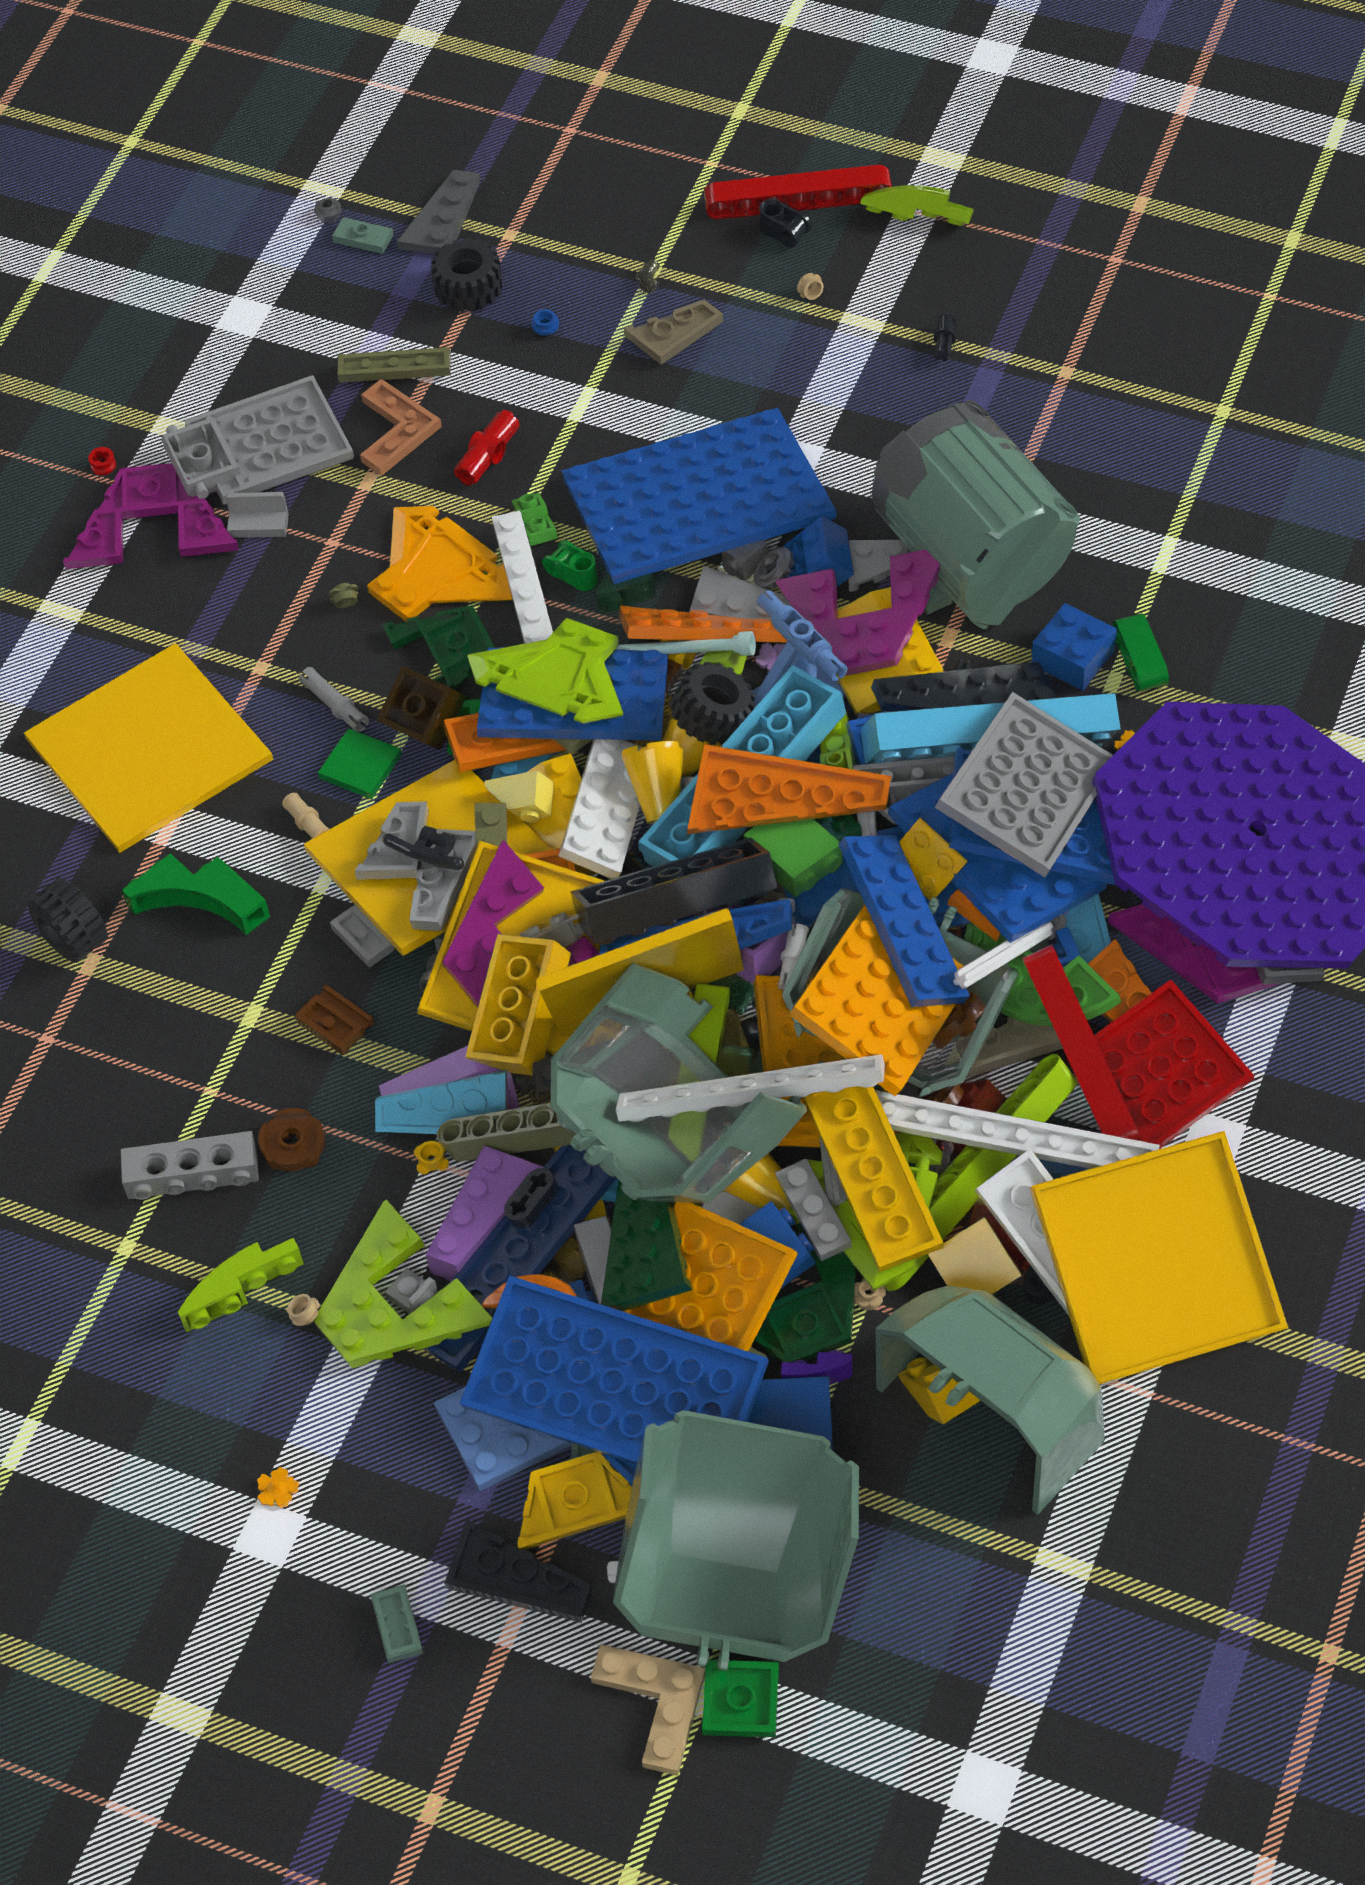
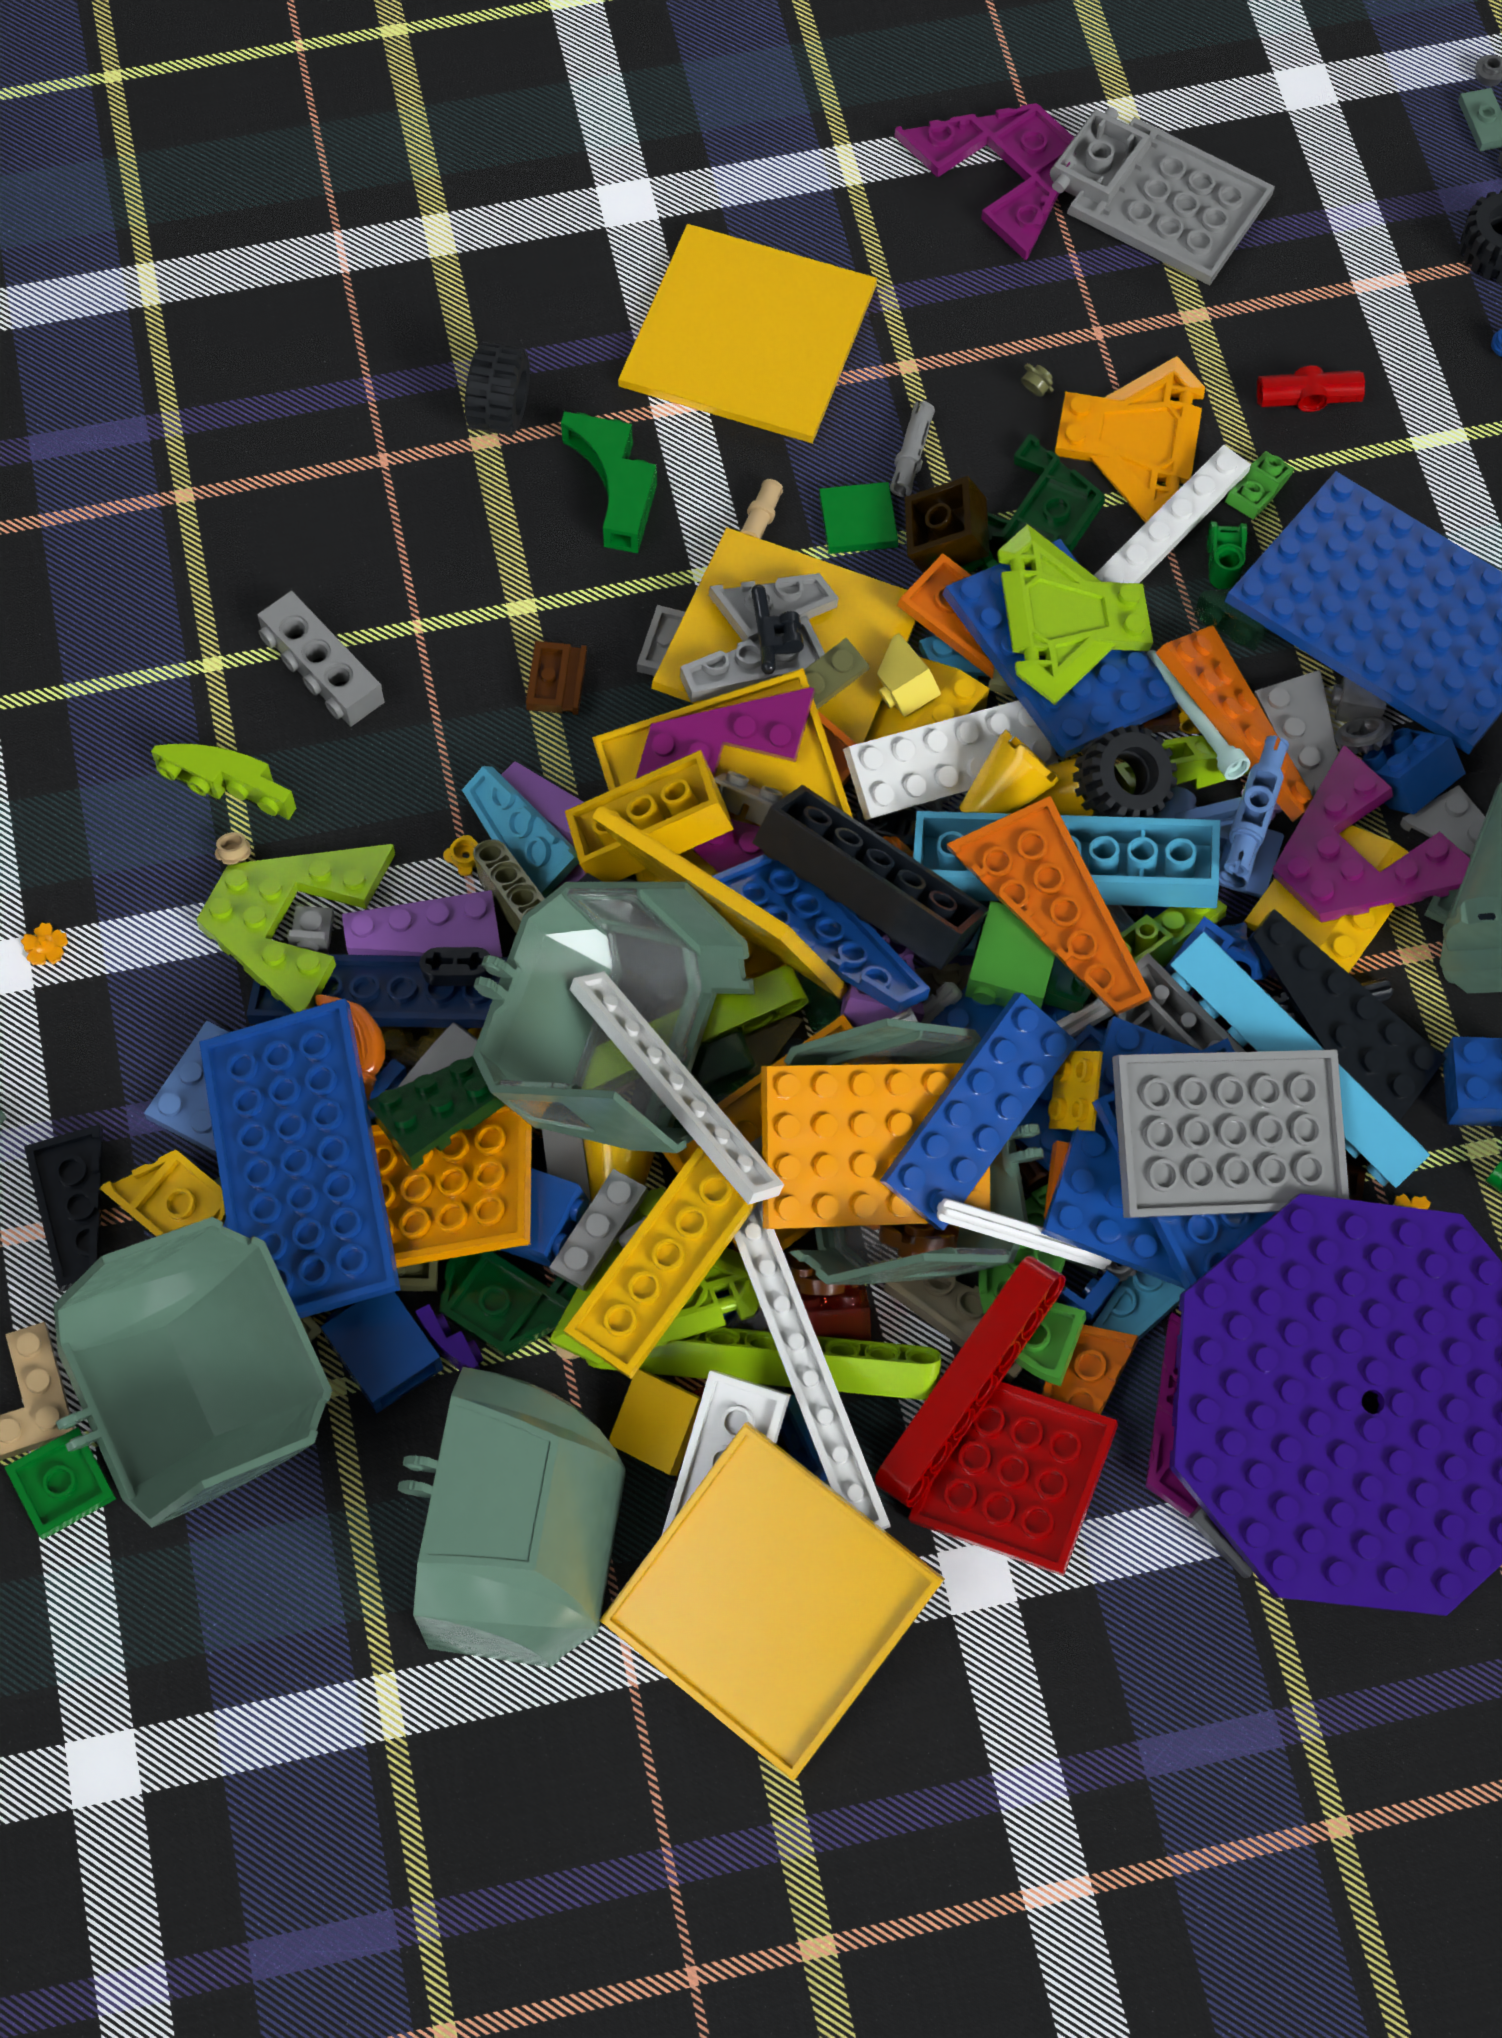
camera: 50 degrees right, 10 degrees up
(107, 456) = (1035, 76): red bush -> none
(257, 514) = (1073, 249): light grey panel -> none
(294, 1156) = (408, 707): reddish brown plate -> none
(394, 364) = (1347, 246): olive plate -> none
(412, 426) = (1284, 312): nougat plate -> none

